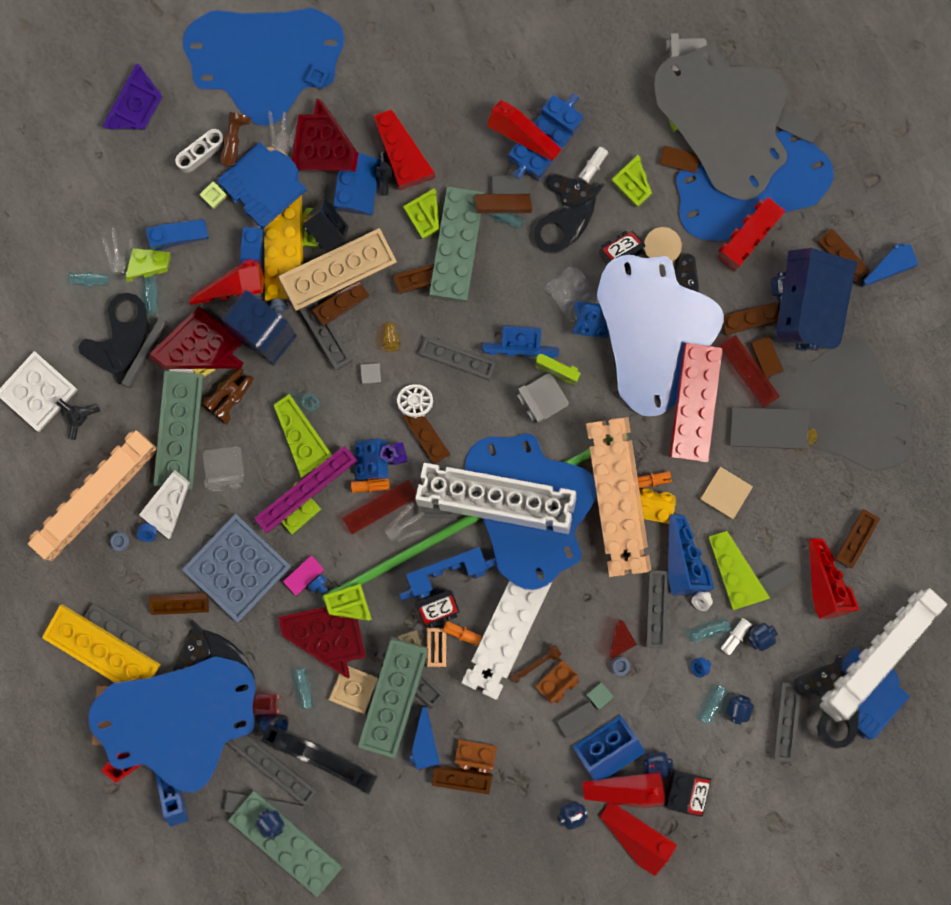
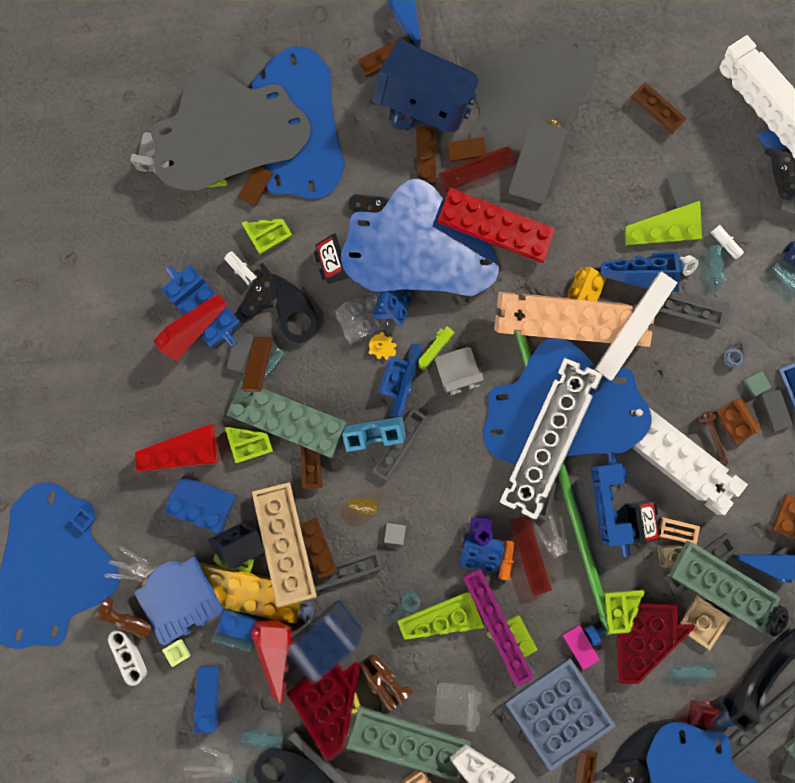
camera: 75 degrees left, 0 degrees up
(135, 103) = (61, 713): dark purple wing -> none
(147, 263) = (229, 737): lime wing -> none
(235, 244) = (231, 642): none -> clear light blue pin
(322, 144) = (152, 529): dark red wing -> none
(365, 761) = (777, 621): none -> black gear
(383, 172) = (196, 474): black piece -> none
(414, 401) = (432, 496): white wheel -> none
(427, 437) = (468, 493): reddish brown plate -> none
(457, 318) = (360, 435): none -> dark azure arch
(462, 633) = (672, 503): orange axle -> none
(549, 319) = (382, 346): none -> yellow piece
(621, 641) = (711, 350): clear red slope -> none
(624, 554) = (635, 326): none -> white tile
(654, 479) = (561, 281): orange axle -> none
(663, 242) = (335, 219): tan tile -> none
(700, 667) = (750, 282): blue tile -> none
(726, 493) = (588, 218): tan tile -> none
(751, 234) = (345, 135): red wedge -> none
(762, 637) = (734, 216): dark blue head -> none
(829, 591) = (707, 144): red wedge -> none

